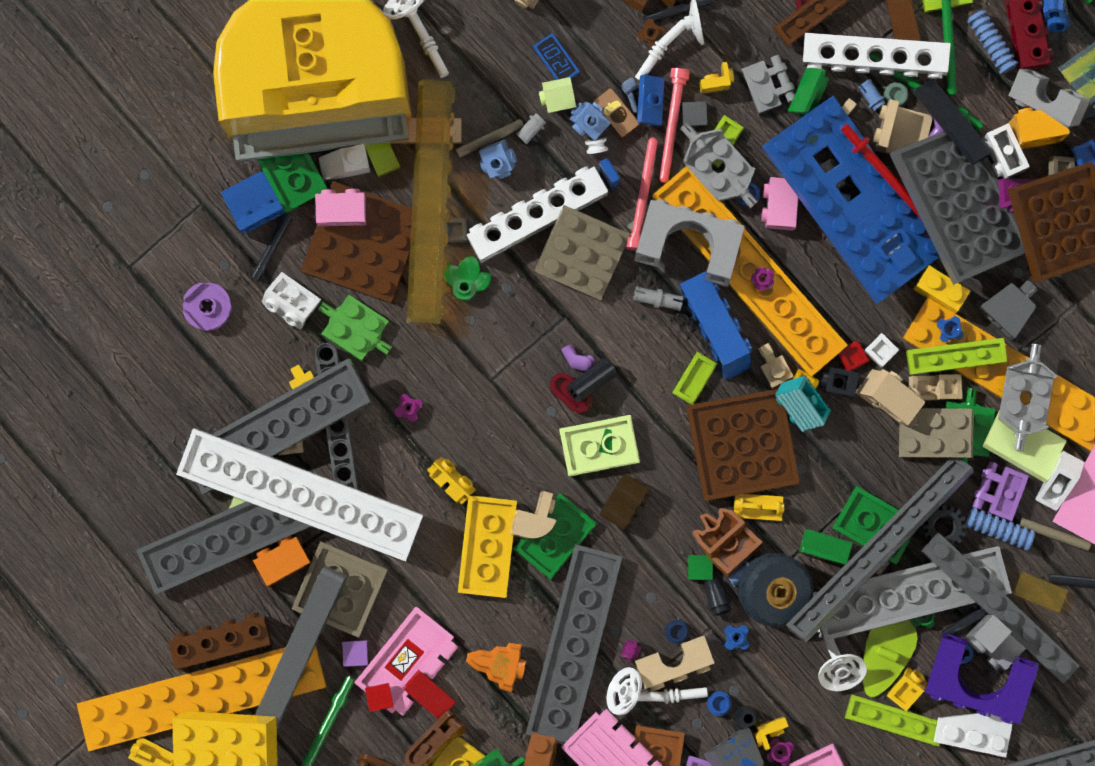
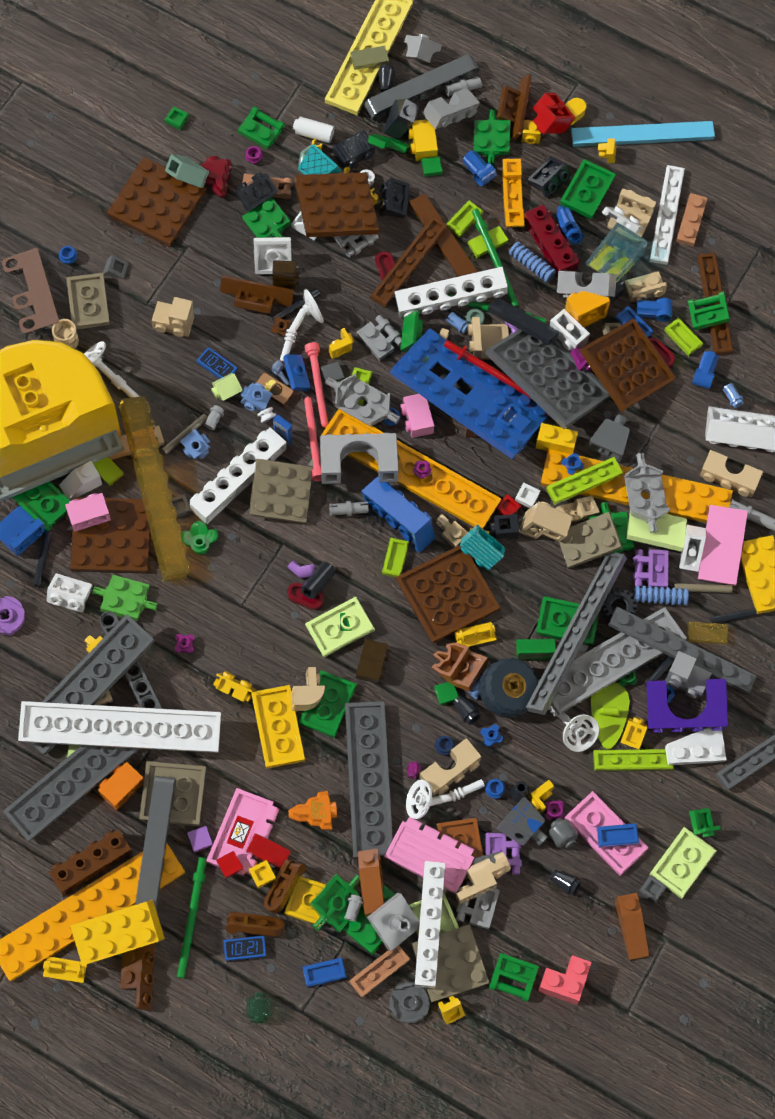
camera: 20 degrees left, 15 degrees down
(413, 721) = (262, 874): none -> yellow tile

